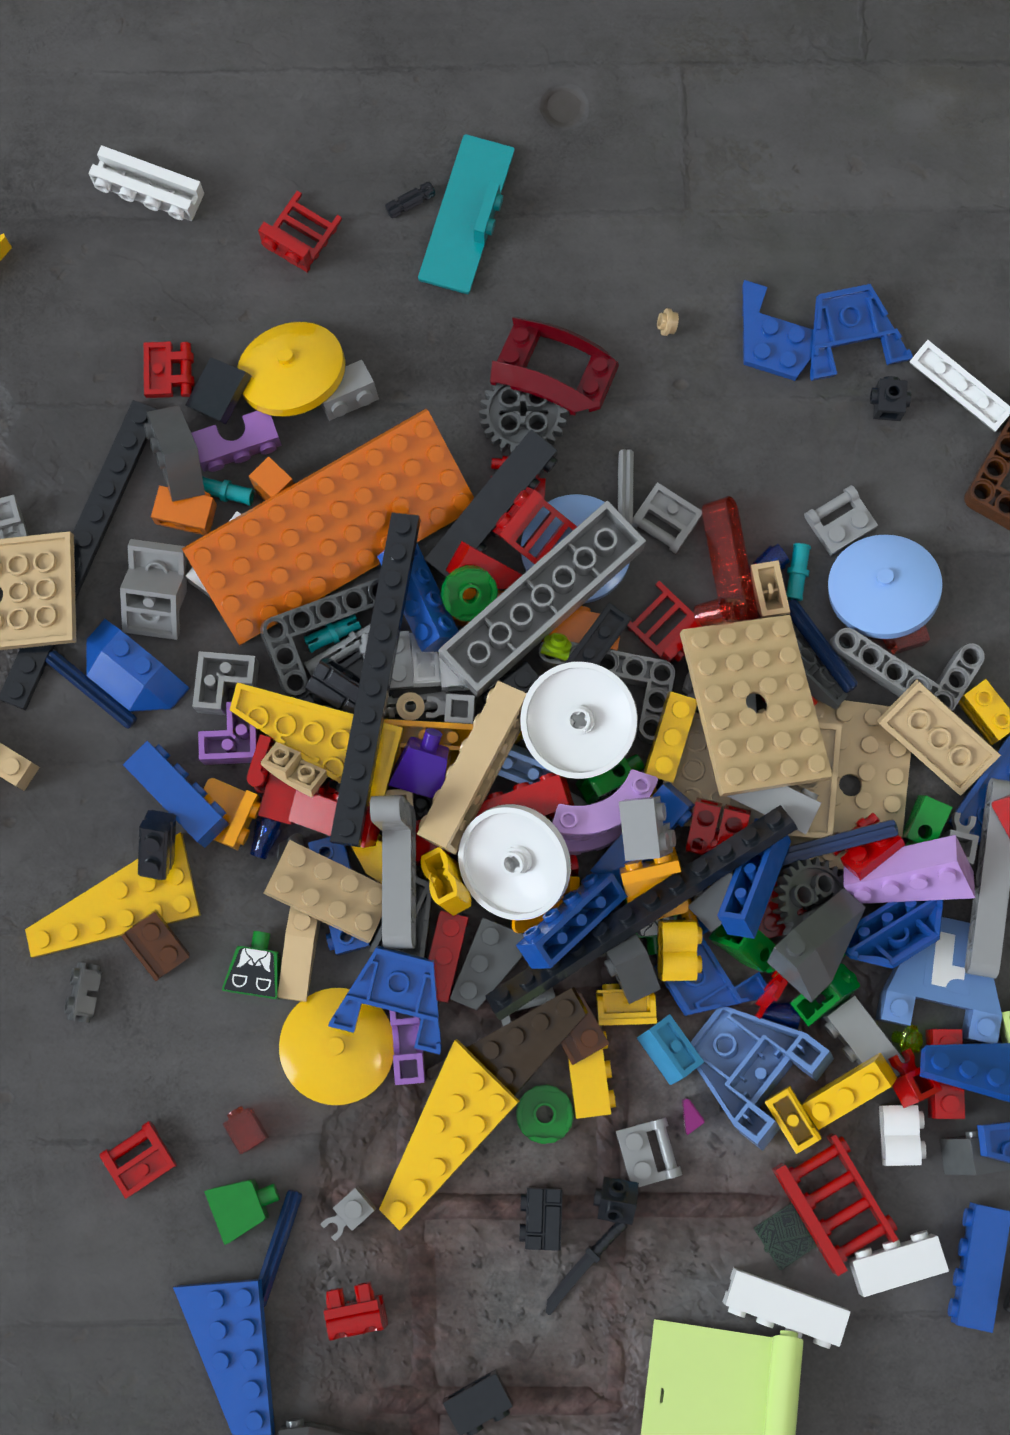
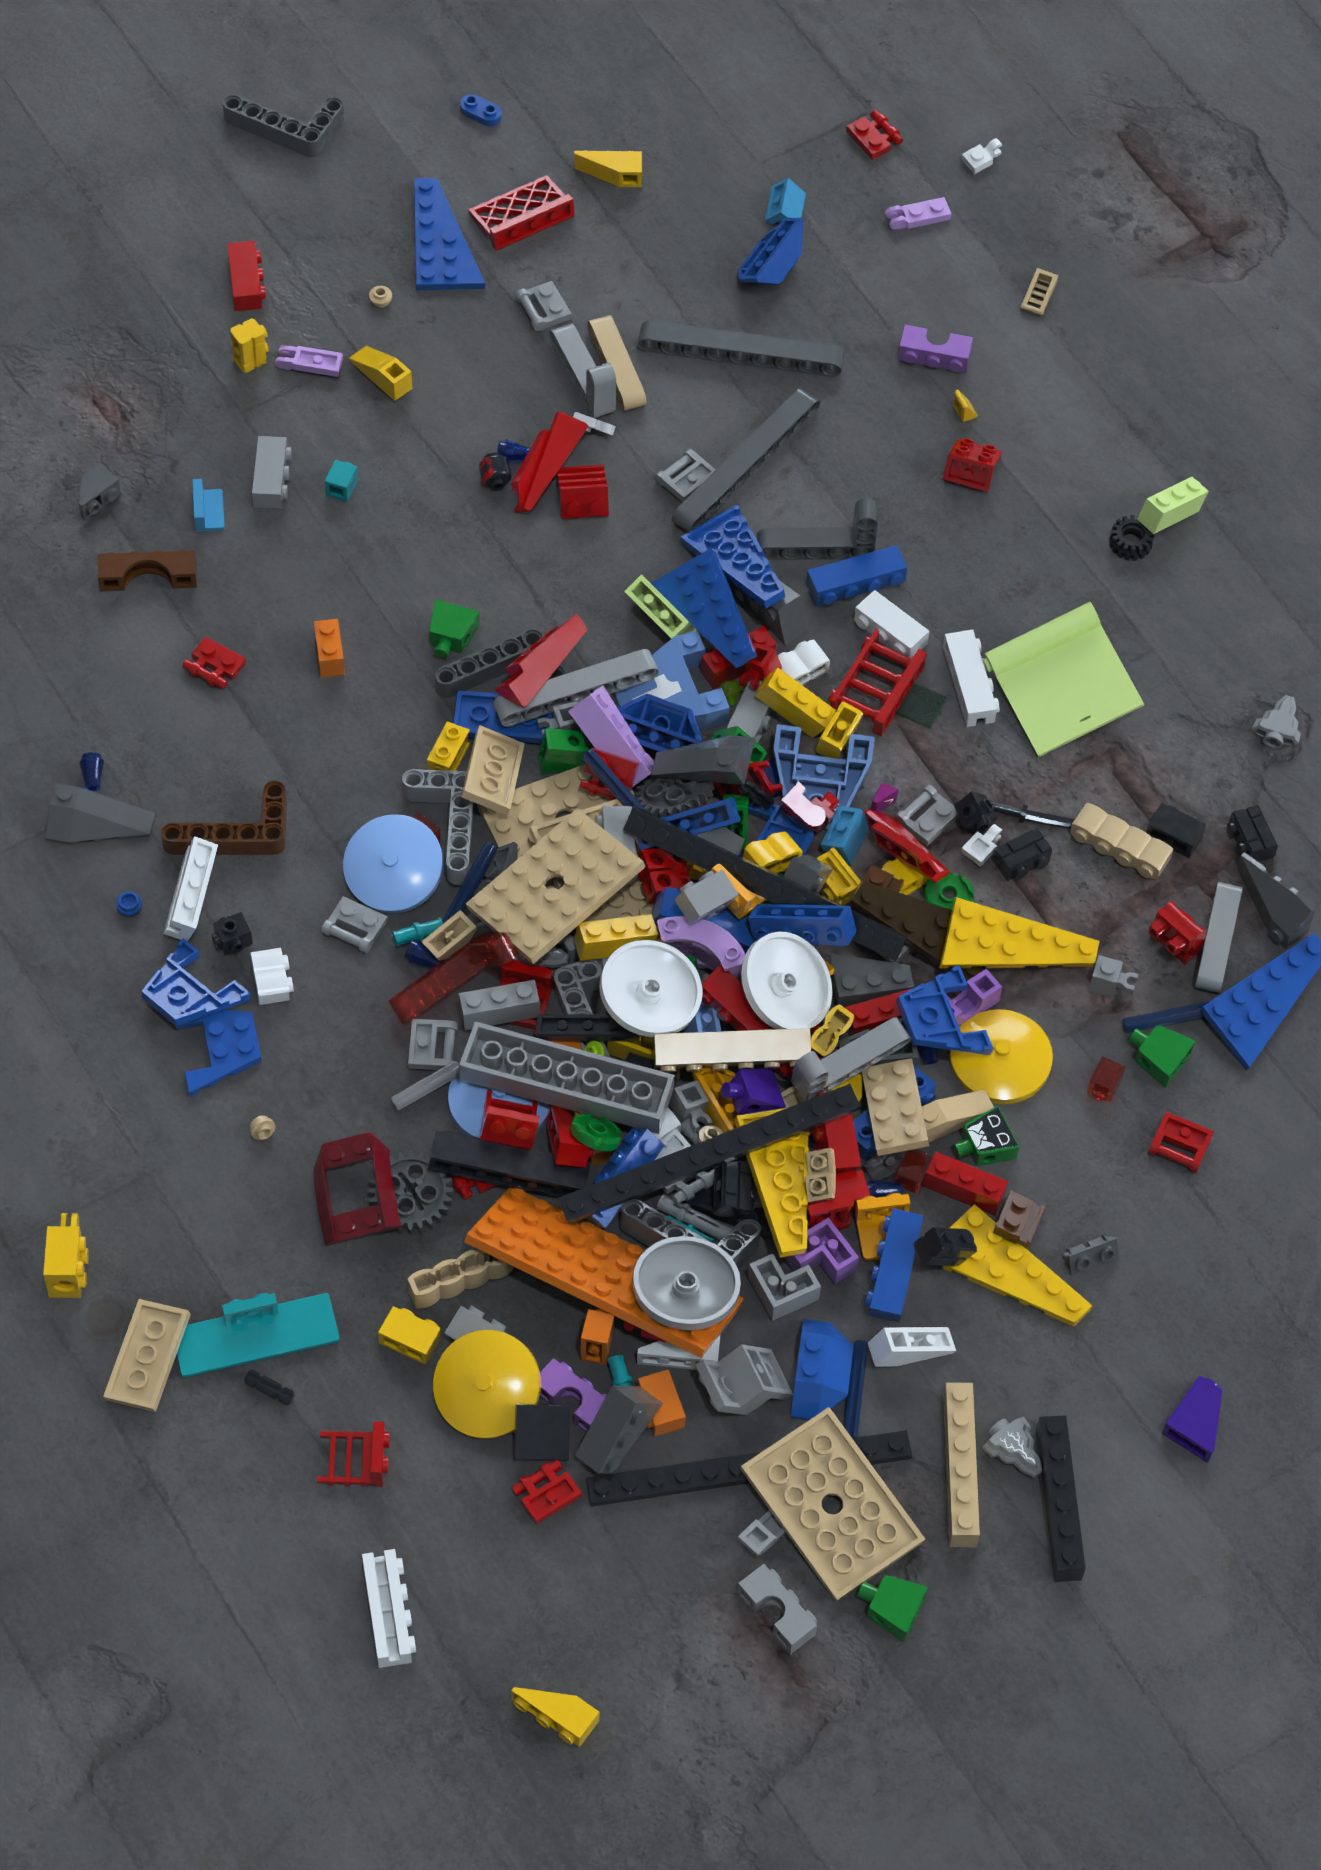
camera: 125 degrees left, 20 degrees down
(96, 763) = (909, 1345): none -> white slope
(221, 917) = (965, 1183): none -> red brick
(257, 574) = (686, 1283): none -> light grey dish
(260, 875) = (913, 1170): none -> clear red brick
(331, 1360) = (1218, 937): none -> light grey beam
(383, 336) = (410, 1335): none -> yellow brick
(414, 384) = (453, 1276): none -> tan brick
(497, 1335) = (1124, 842): none -> tan brick
(498, 112) = (147, 1355): none -> tan plate
(577, 1182) = (981, 846): none -> white plate
(615, 1096) = (903, 845): none -> red wedge
(631, 86) = (65, 1259): none -> yellow brick
(667, 593) = (500, 1004): none -> light grey brick
(708, 1019) = (810, 814): none -> hips
(759, 981) = (756, 793): none -> black axle
(825, 412) = (270, 976): none -> white brick
(980, 331) = (129, 903): none -> blue plate

